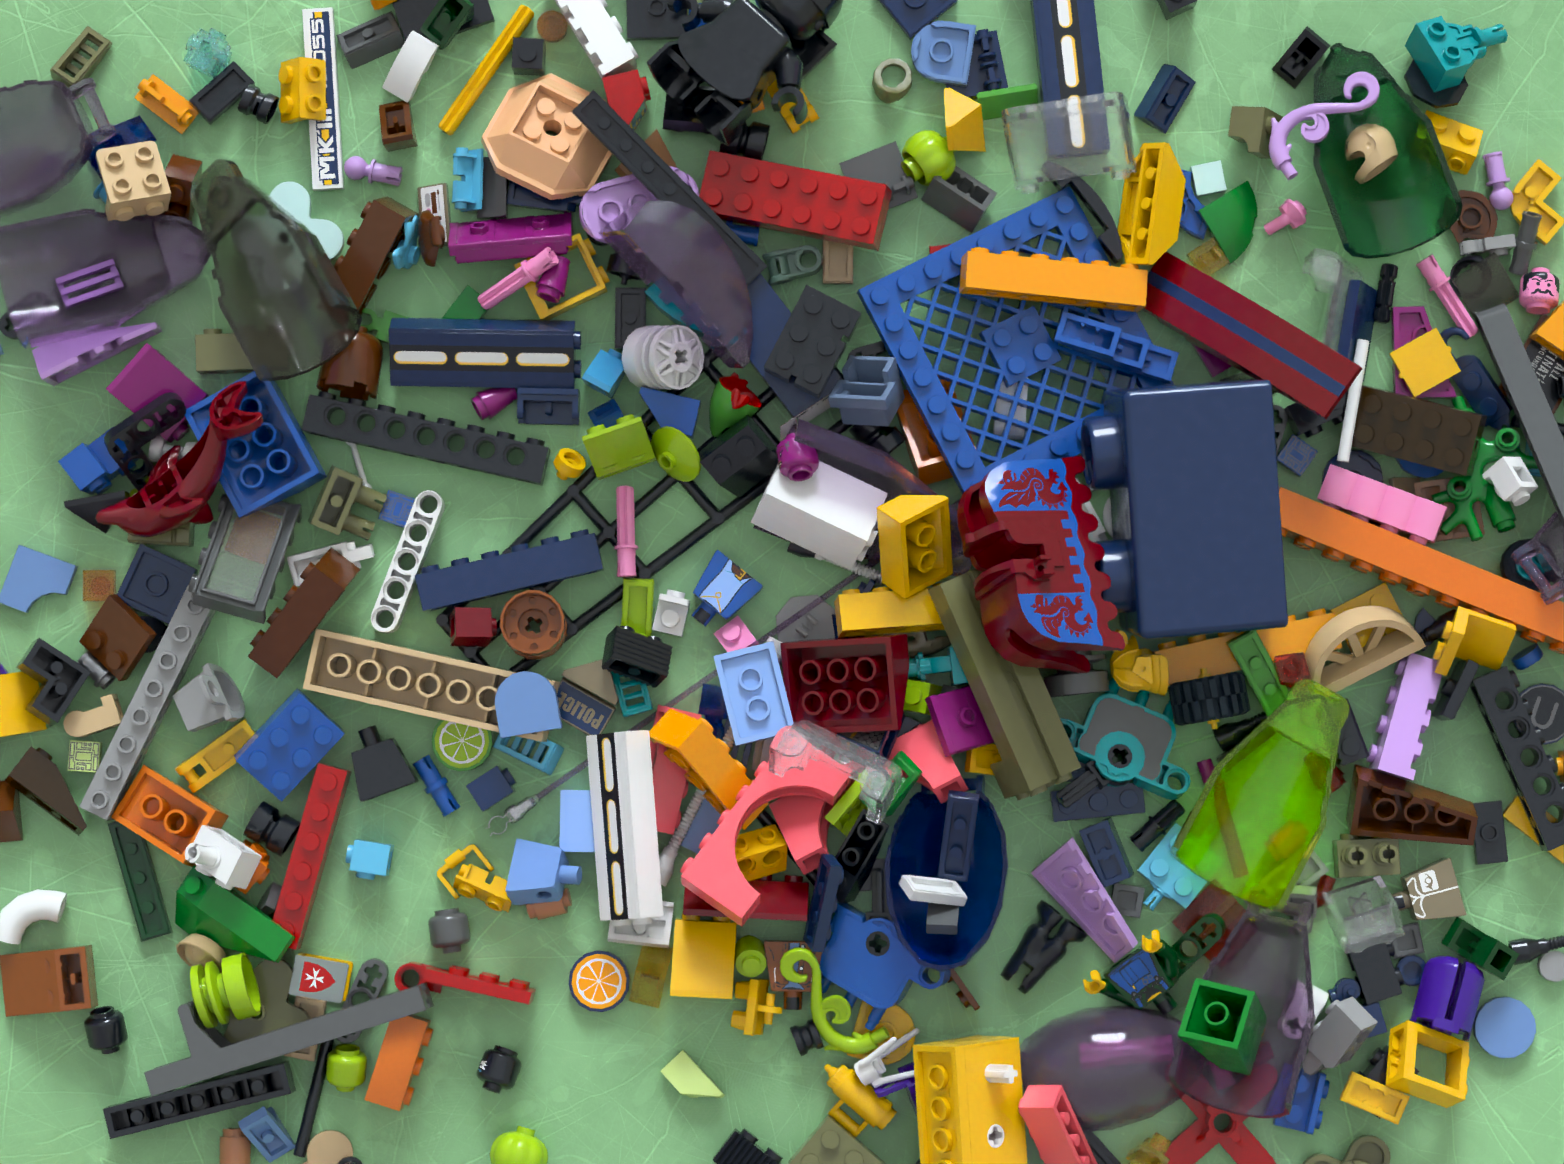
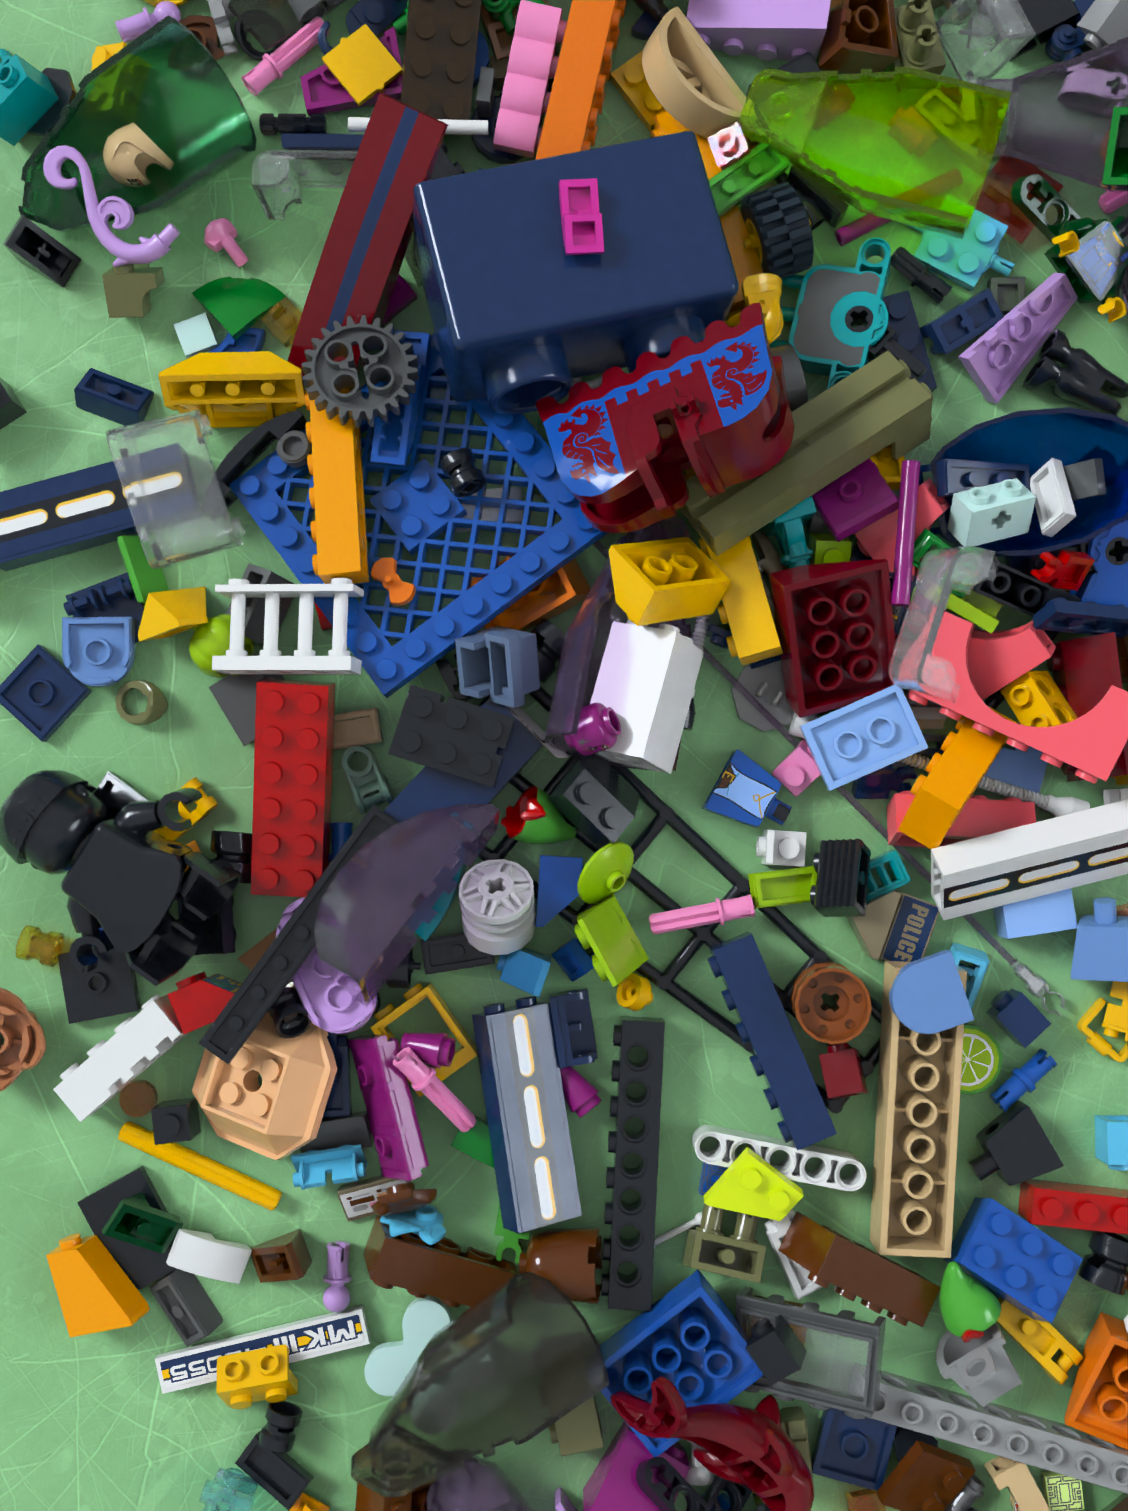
camera: 105 degrees left, 0 degrees up
(257, 525) = (775, 1348): none -> black brick
(262, 695) = (966, 1304): none -> bright green hat
(387, 534) = (754, 1189): none -> neon yellow wing
(602, 167) = (289, 1014): none -> black wheel
(866, 892) = (1065, 571): none -> red plate
(901, 227) = (304, 659): none -> white fence
(920, 753) = (905, 533): none -> magenta piece
(927, 833) = (991, 512): none -> light aqua brick
(963, 308) = (385, 571): none -> orange piece
(1039, 388) = (464, 475): none -> black wheel
(1089, 248) = (294, 448): none -> dark grey tile
(1137, 287) = (327, 377): none -> dark grey gear
(1219, 513) = (581, 217): none -> dark pink slope
(1379, 466) = (486, 92): none -> dark grey tile

